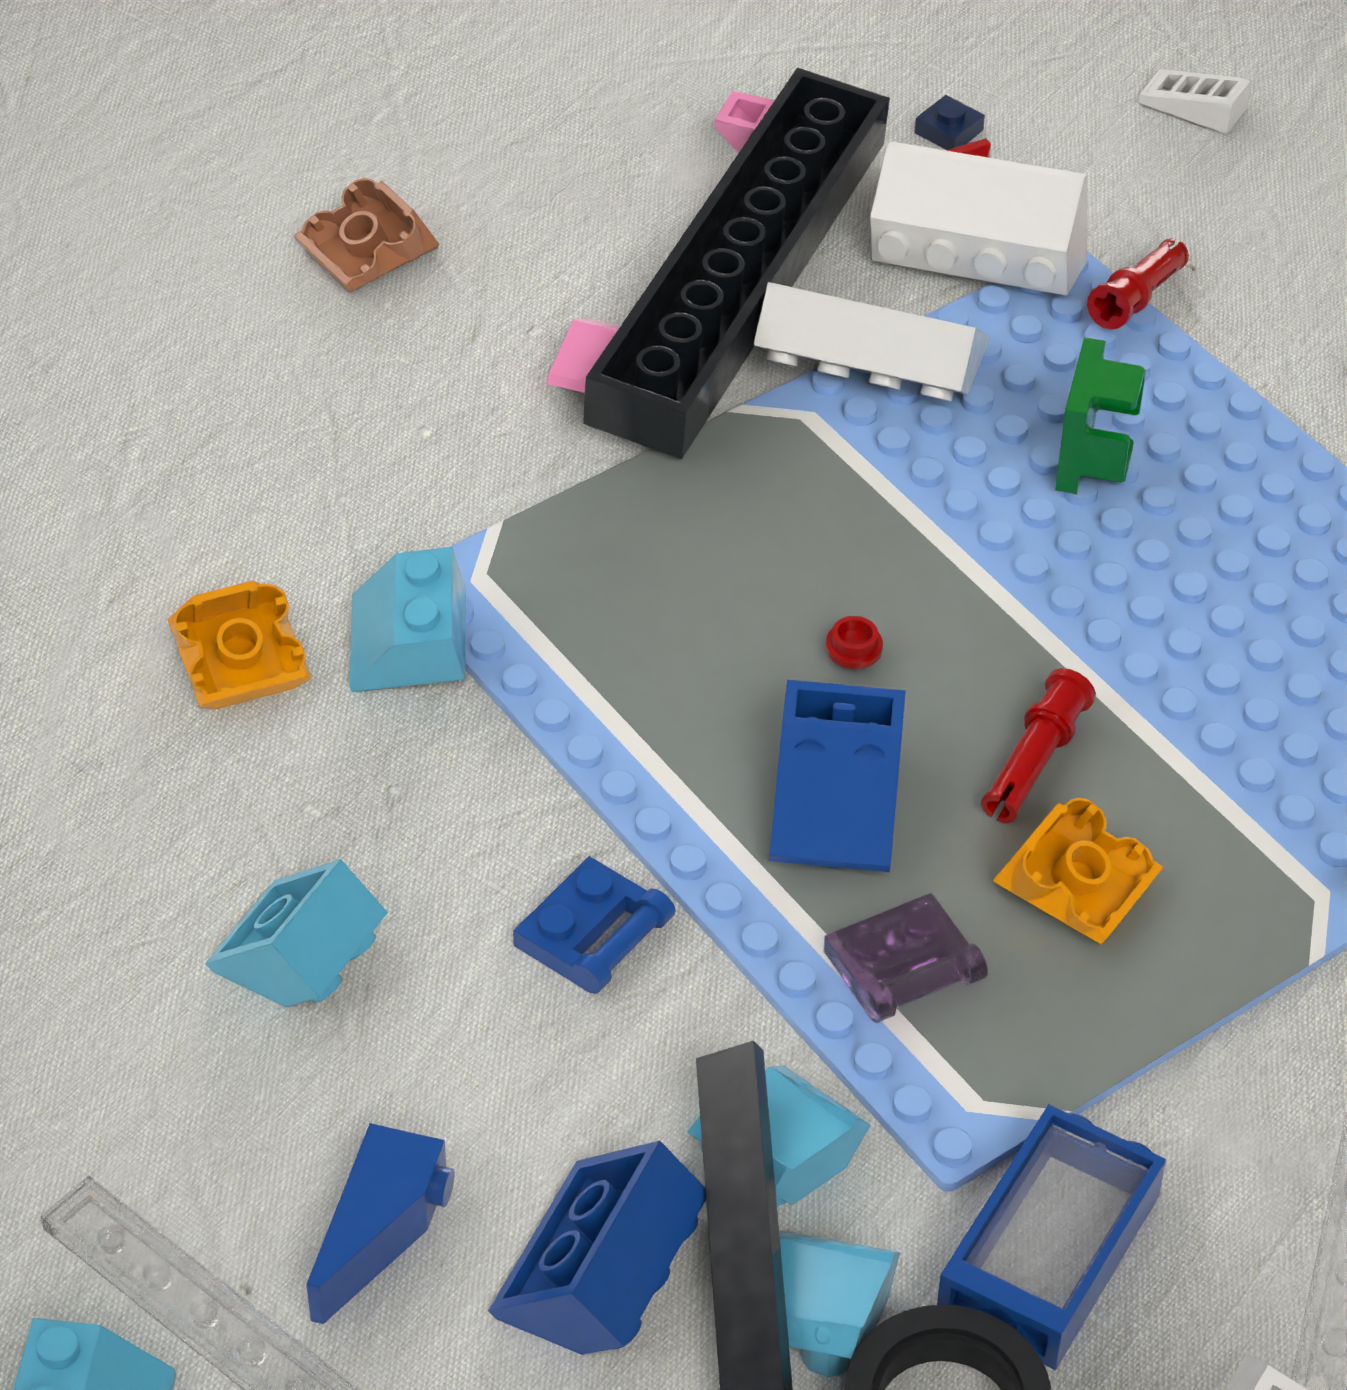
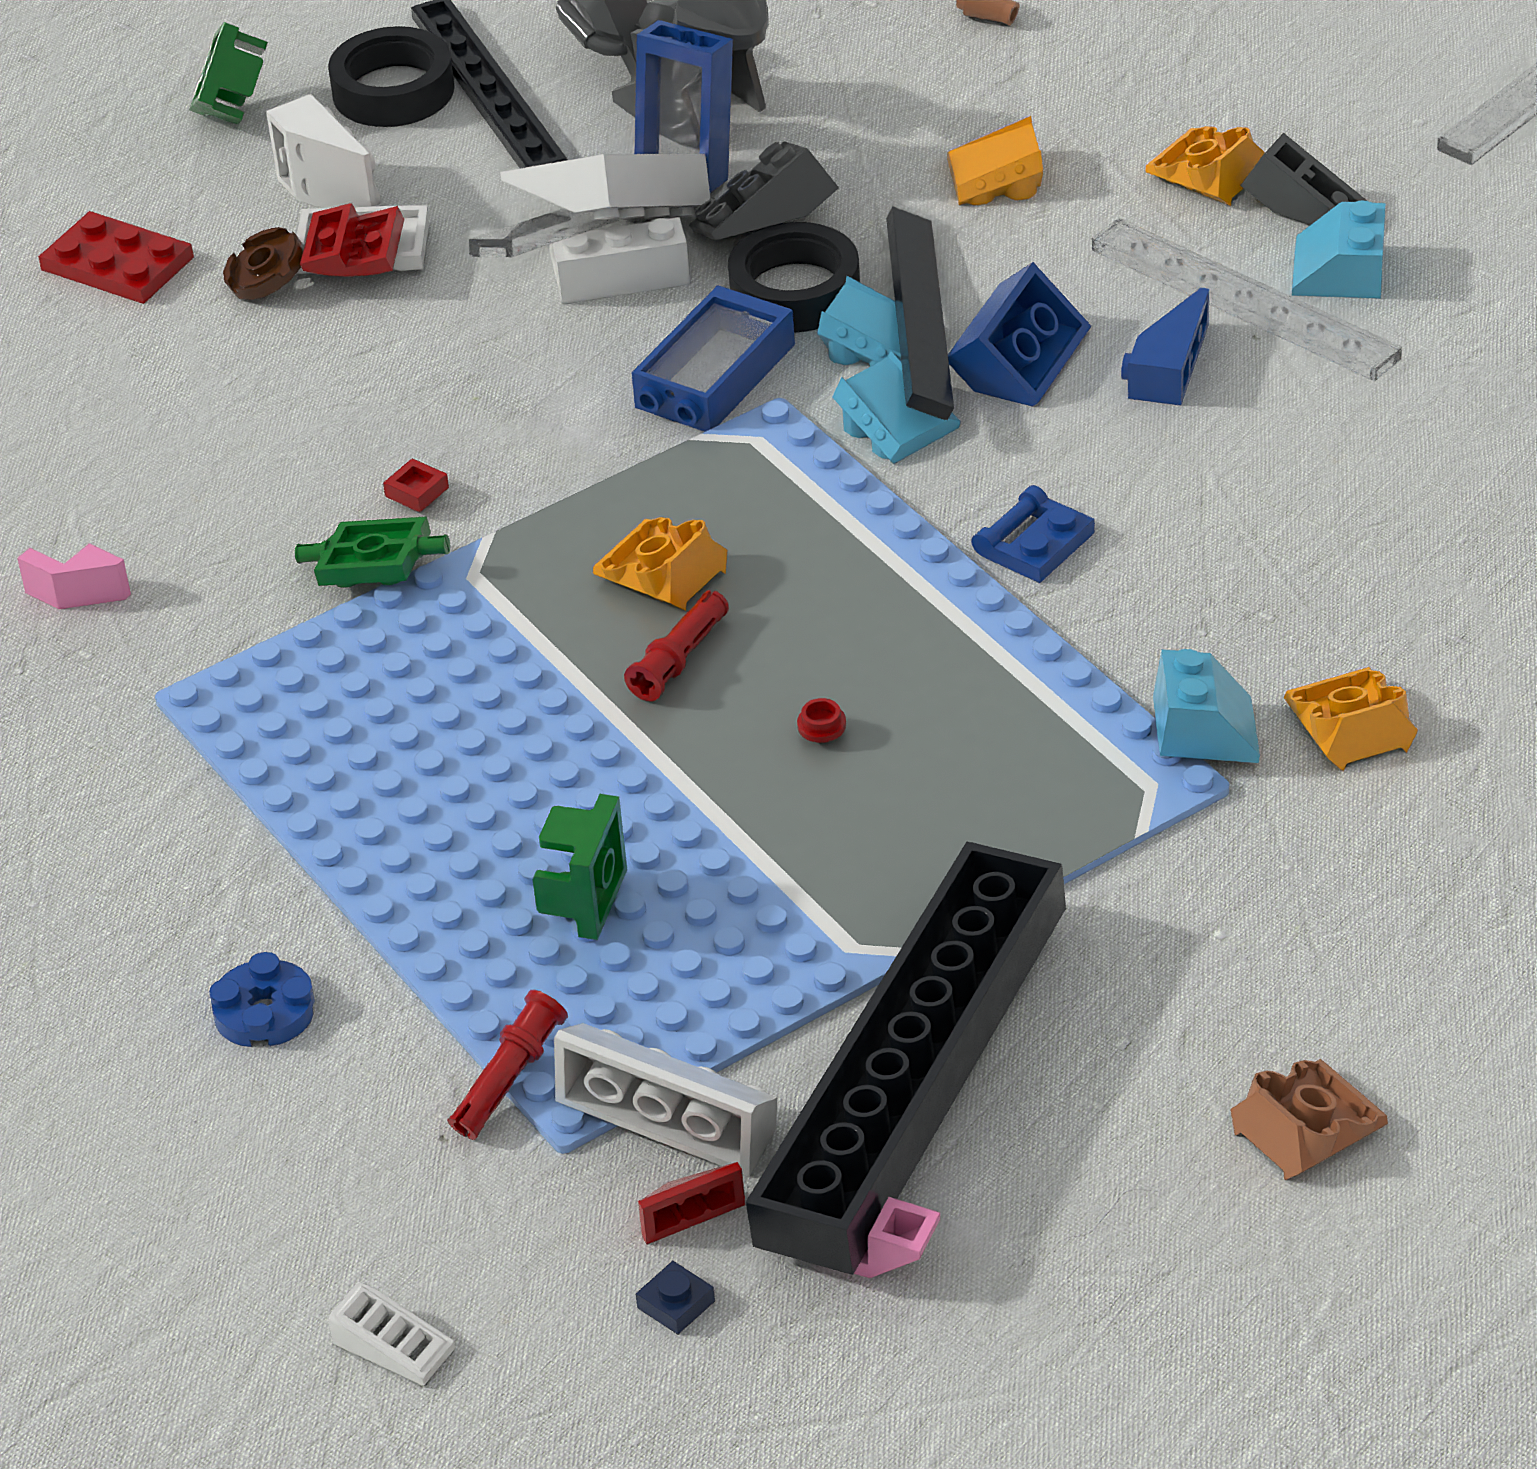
camera: 175 degrees left, 5 degrees down
(300, 935) = (1259, 502): medium azure slope -> none
(579, 352) = (1058, 981): bright pink slope -> none
(837, 776) = (840, 608): blue slope -> none
(870, 340) = (775, 975): white slope -> none
(897, 944) = (801, 517): clear purple plate -> none

